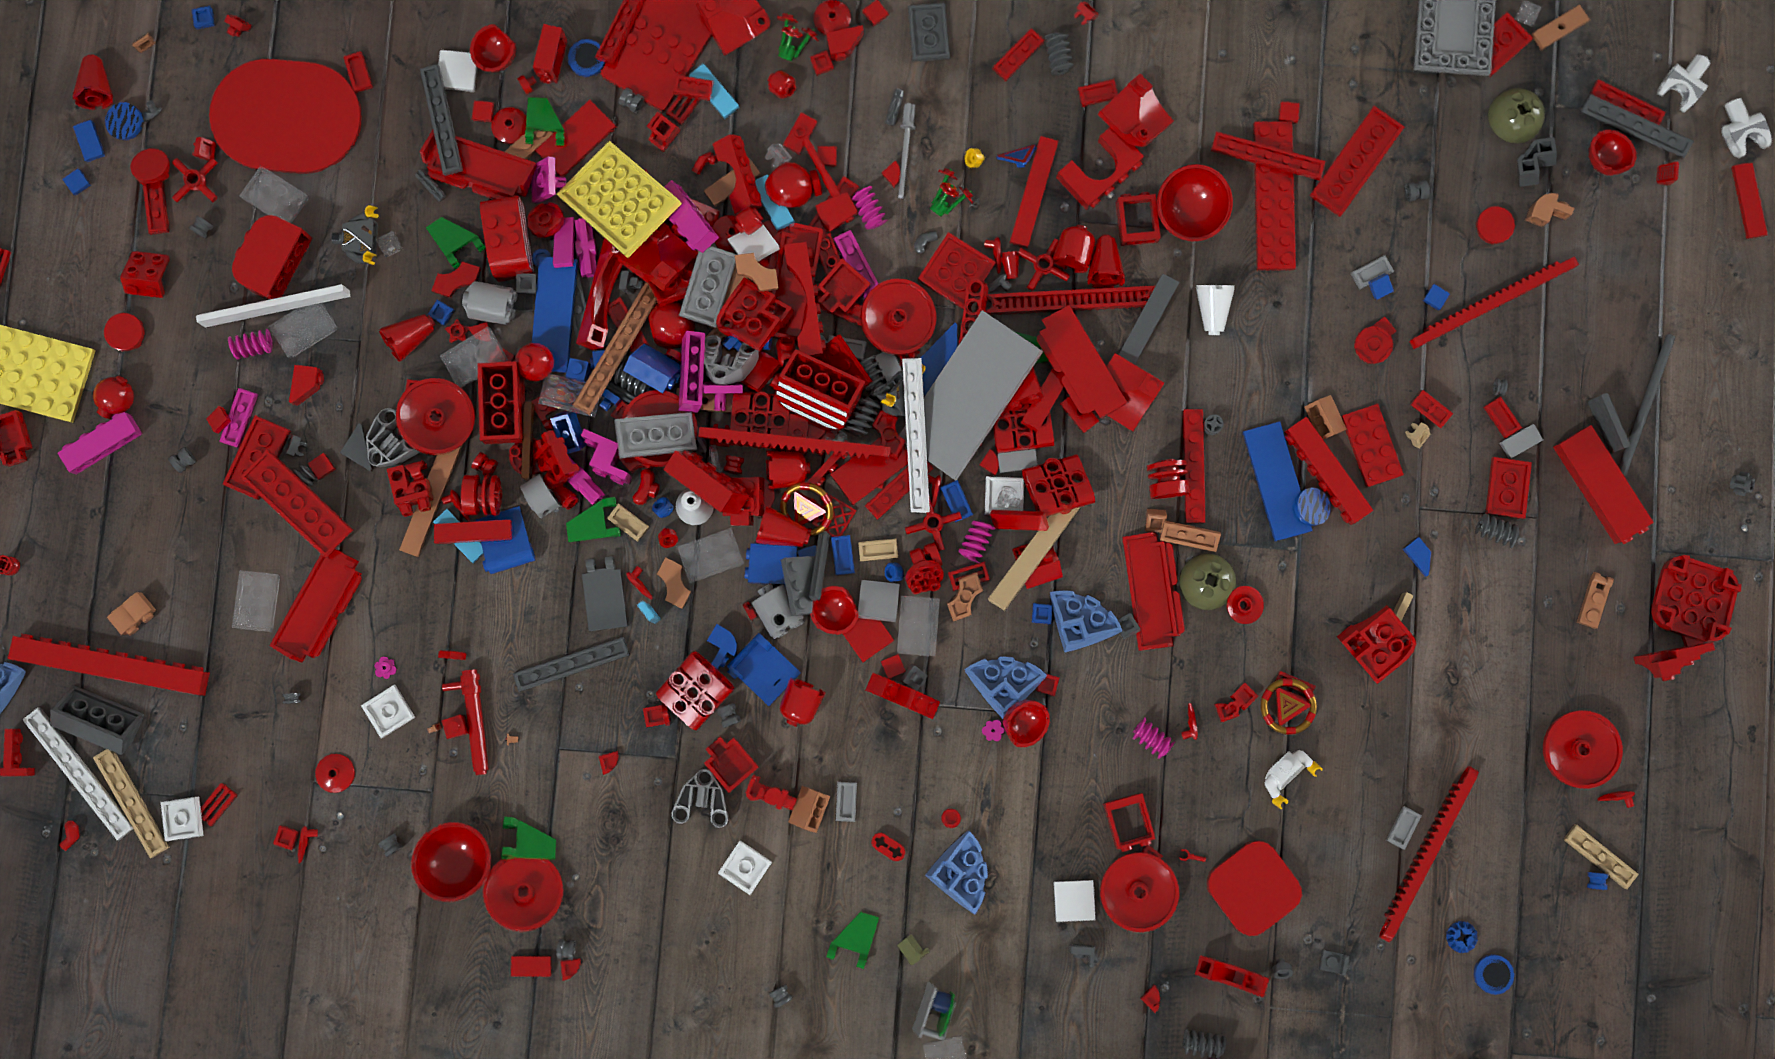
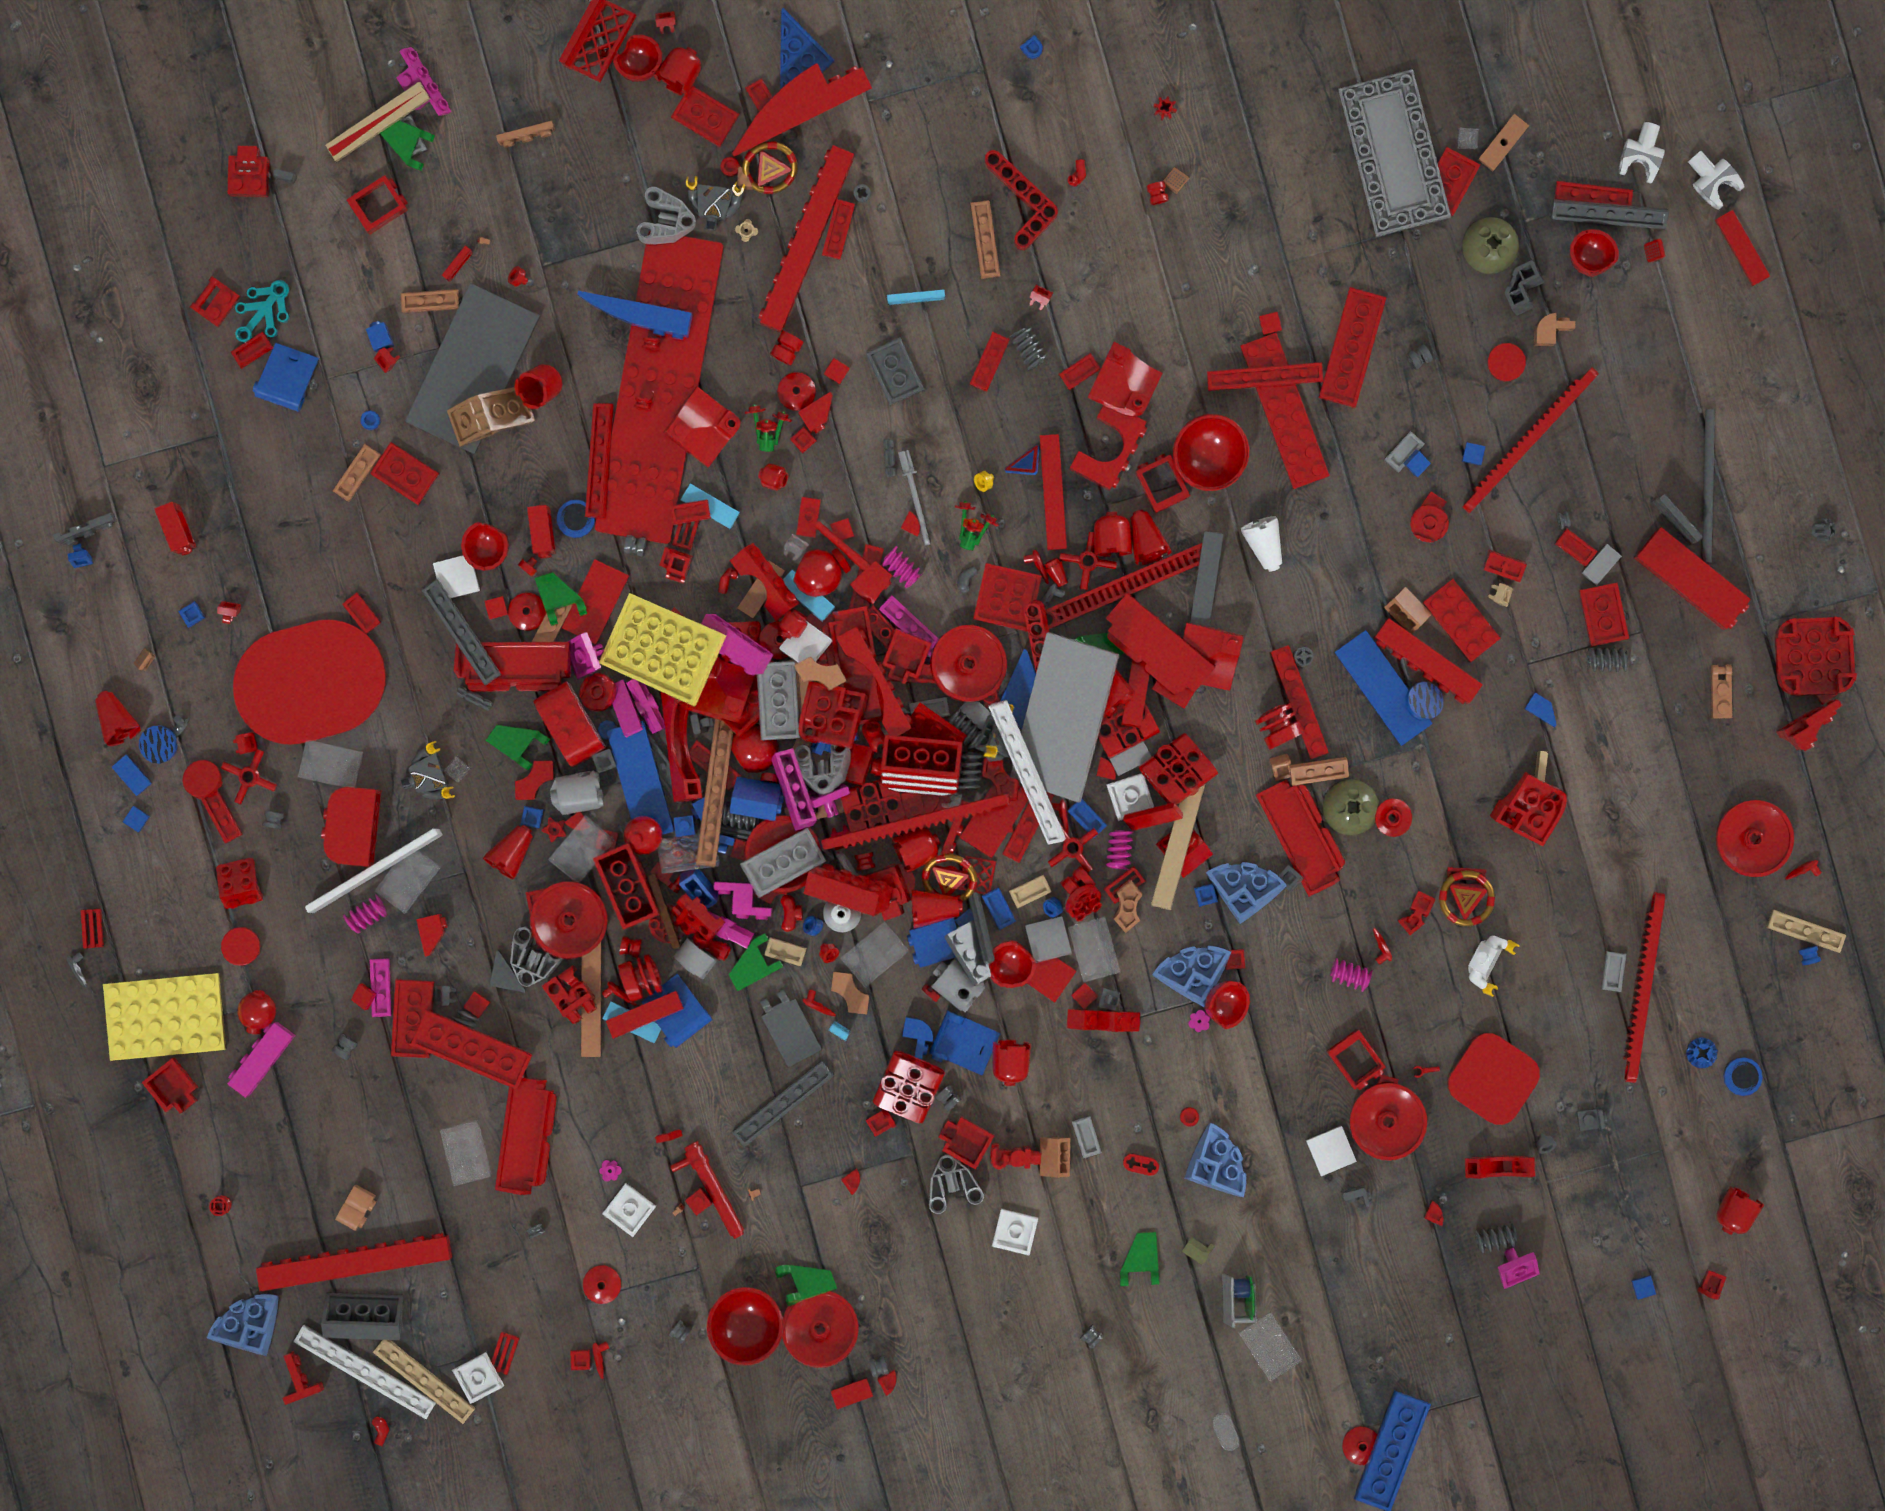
camera: 15 degrees left, 5 degrees up
(1007, 498) = (1133, 799): clear tile -> none

